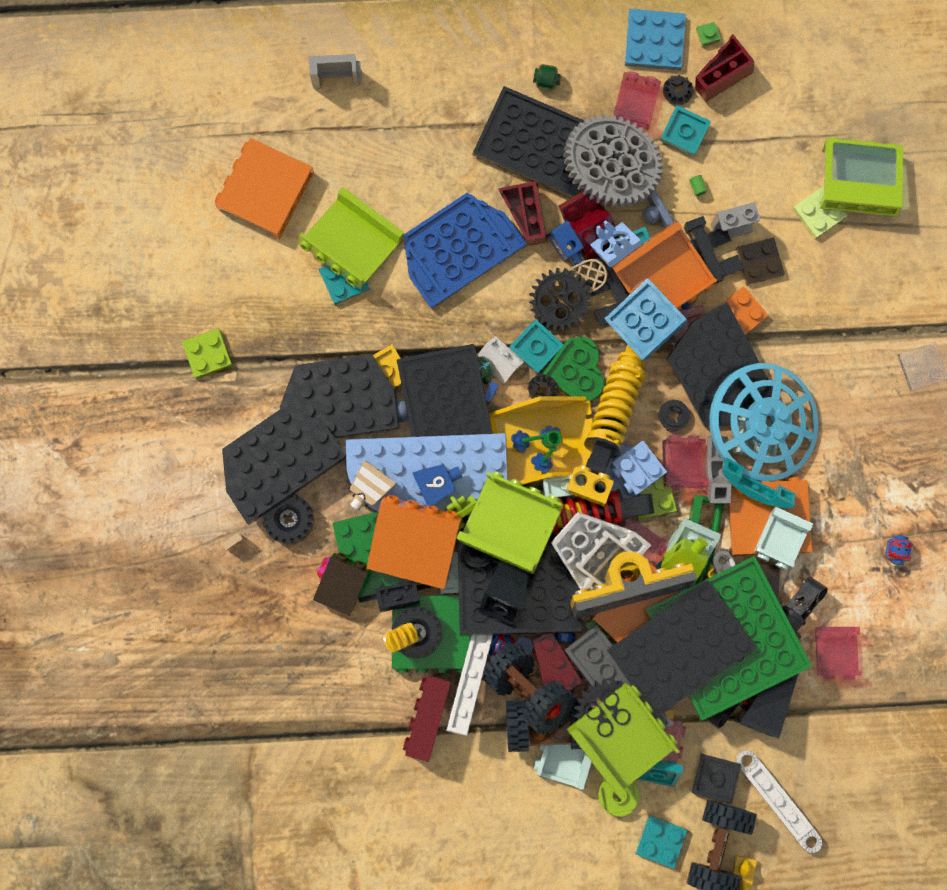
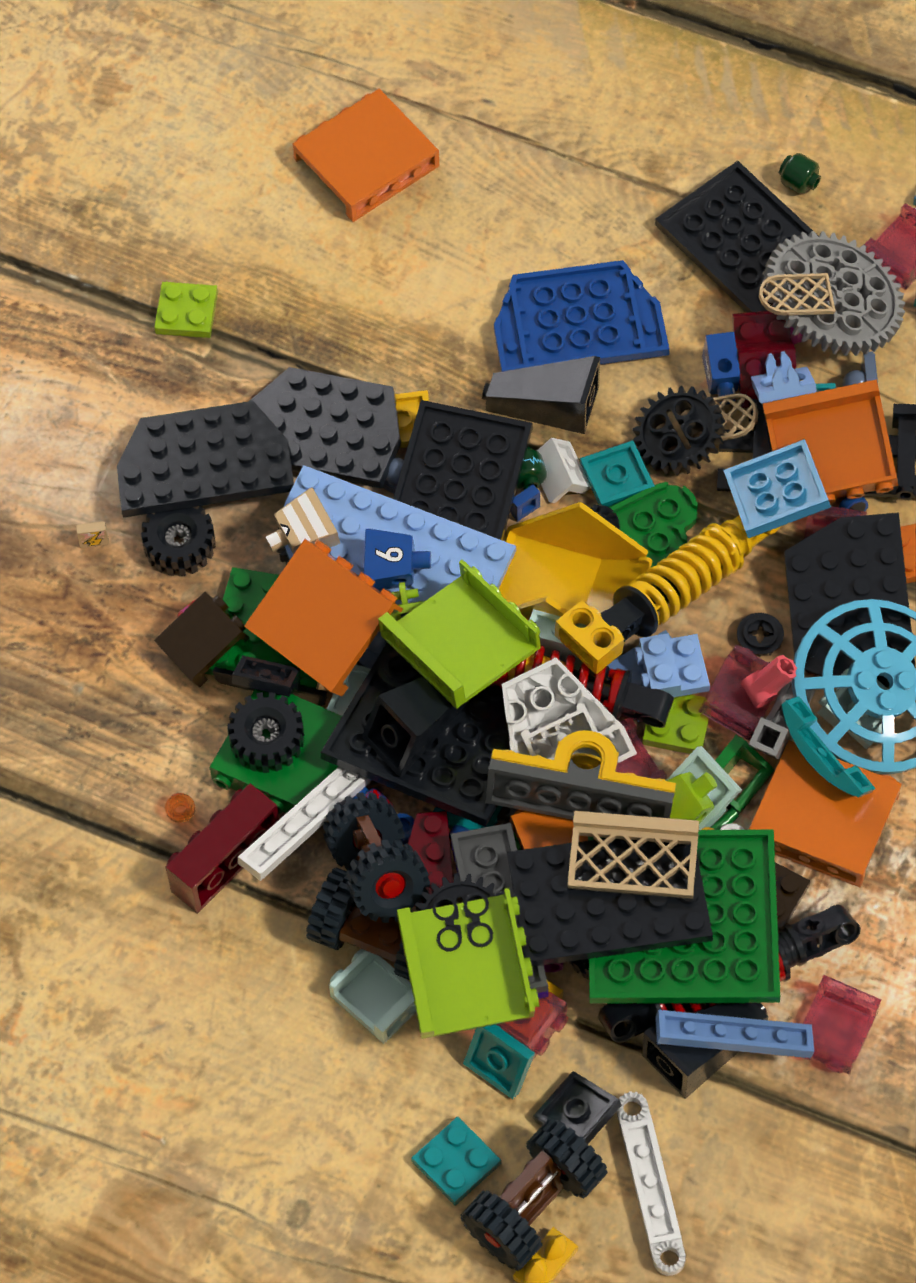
camera: 30 degrees right, 20 degrees down
(334, 66) = (528, 53): light grey panel -> none
(338, 286) = (408, 297): teal plate -> none
(351, 239) = (445, 253): lime panel -> none
(378, 701) = (177, 800): none -> clear orange plate
(400, 637) = (240, 712): yellow gear -> none
(467, 312) = (547, 393): none -> slope
(527, 210) = (690, 310): dark red wedge -> none
(549, 438) = (571, 577): plant -> none
(586, 169) = (794, 311): none -> tan window
(615, 807) = (437, 1086): lime plate -> none
(679, 604) = (633, 828): none -> tan fence
(699, 454) = (765, 683): none -> coral piece
(782, 538) = (828, 835): light aqua panel -> none
(791, 697) = (734, 1034): none -> medium blue plate

